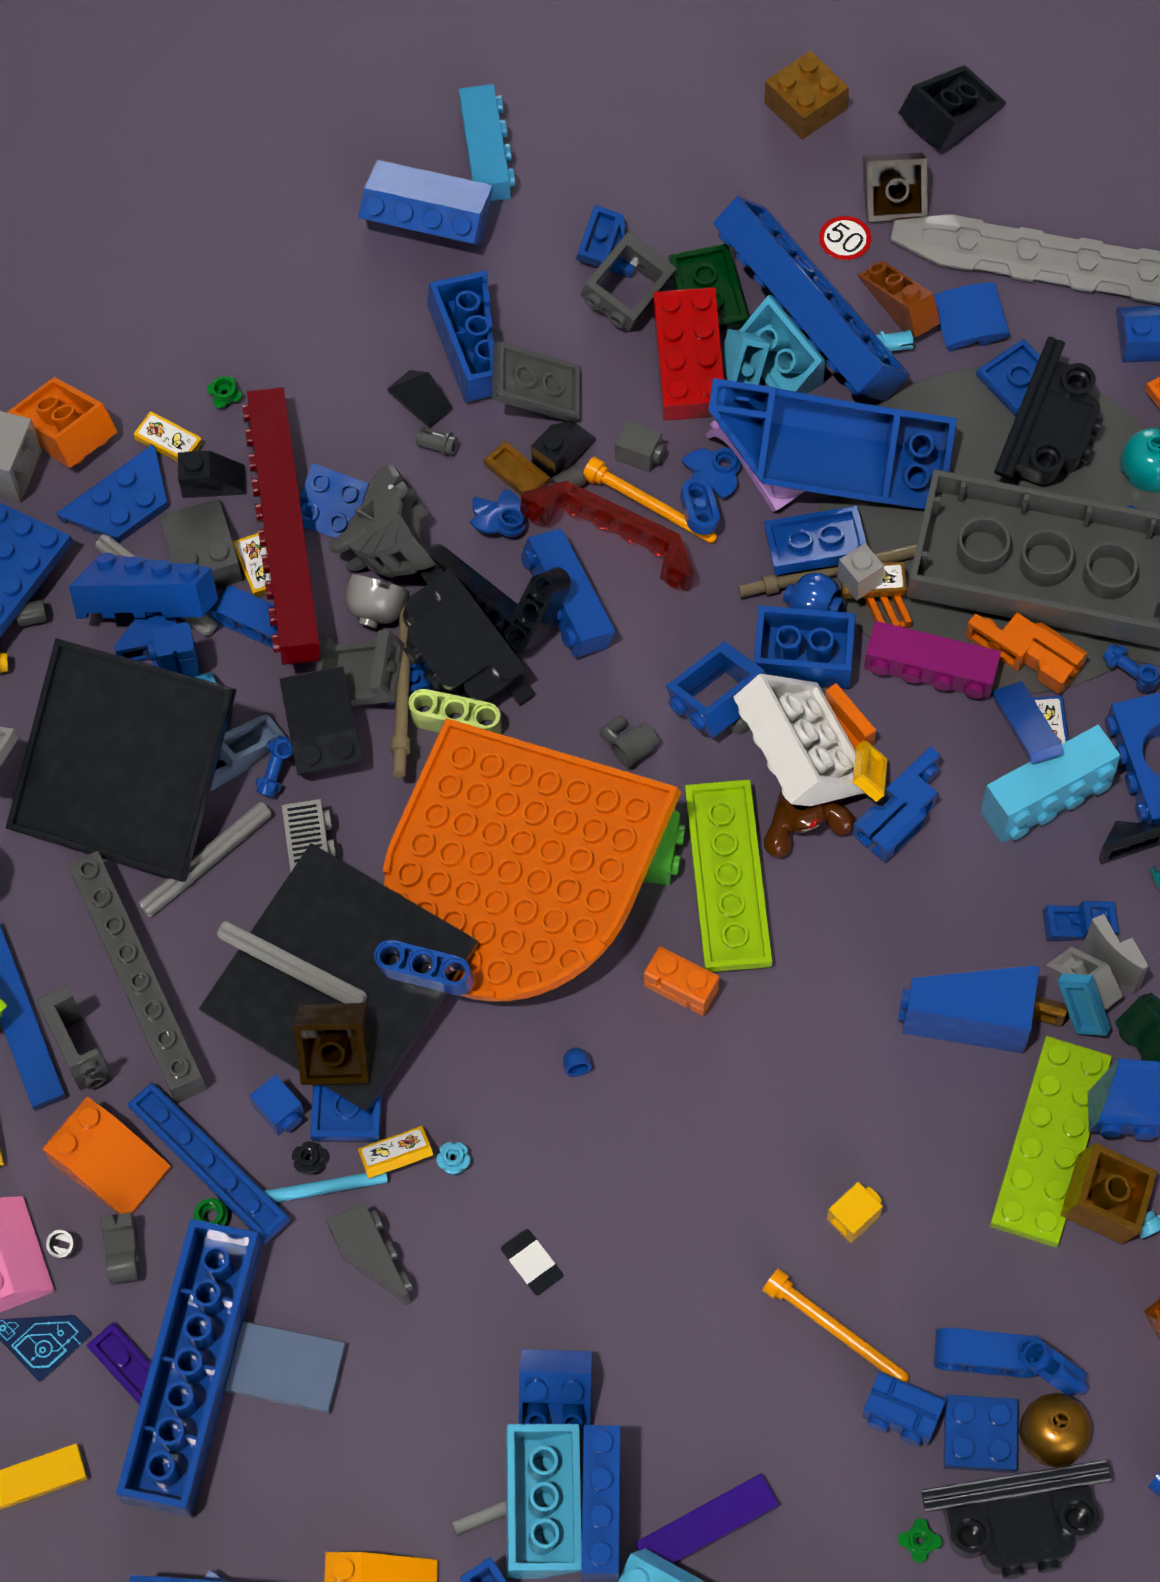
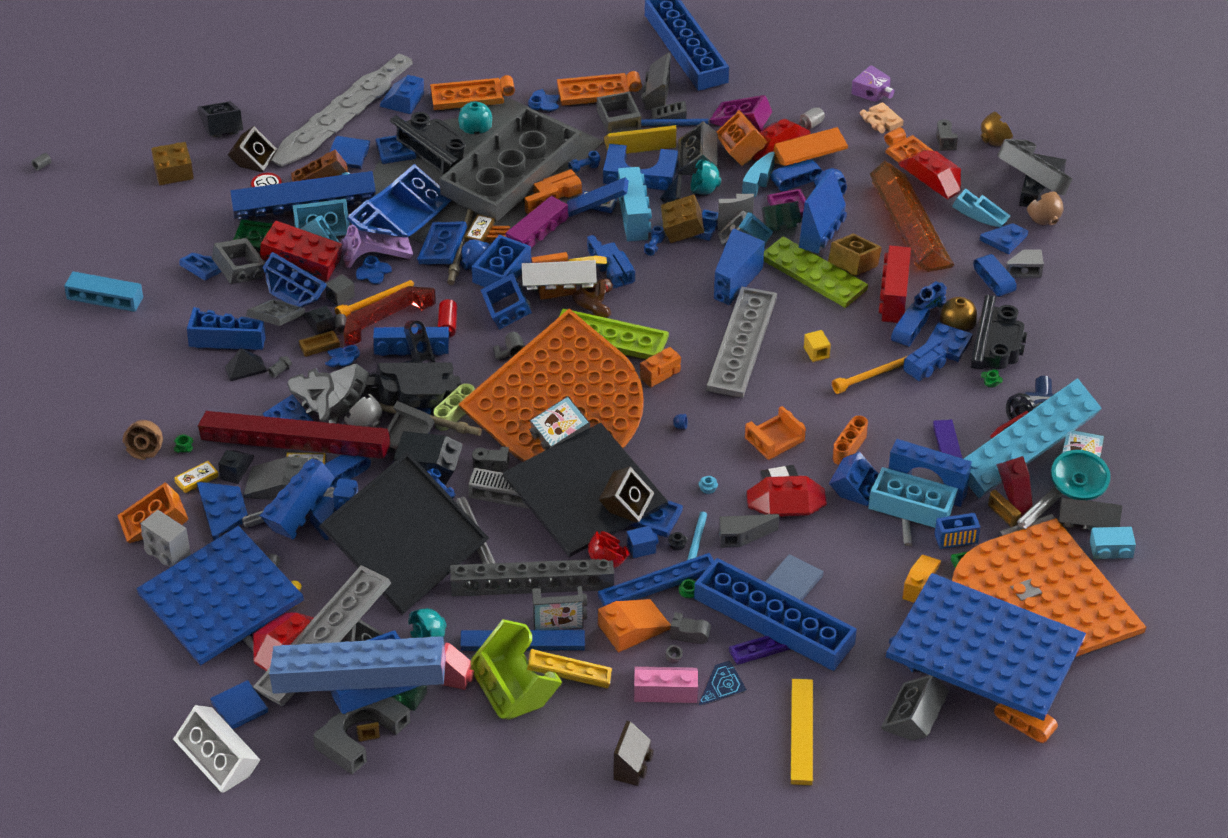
camera: 70 degrees left, 20 degrees down
(201, 336) = (143, 439): none -> medium nougat cylinder
(227, 1061) = (607, 547): none -> red cylinder
(290, 964) = (569, 501): light grey axle -> none
(362, 810) = (491, 459): none -> dark grey leg
(395, 1152) = (693, 504): tile -> none
(412, 956) = (606, 443): blue beam -> none
(426, 202) = (128, 321): blue slope -> none
(446, 883) = (558, 423): none -> panel
(467, 1297) = (786, 496): none -> red wedge
(612, 1221) = (776, 434): none -> orange panel
(621, 373) = (291, 282): none -> blue wedge
(647, 622) = (448, 315): none -> red brick
(662, 1358) = (850, 438): none -> orange beam
(700, 513) = (393, 277): blue plate -> none
(811, 1086) = (741, 342): none -> light grey plate
(860, 571) = (477, 224): light grey brick -> none
(1009, 853) = (657, 237): none -> blue bar
(1055, 875) = (682, 218): none -> pearl gold brick
(1063, 1290) = (894, 283): none -> red brick

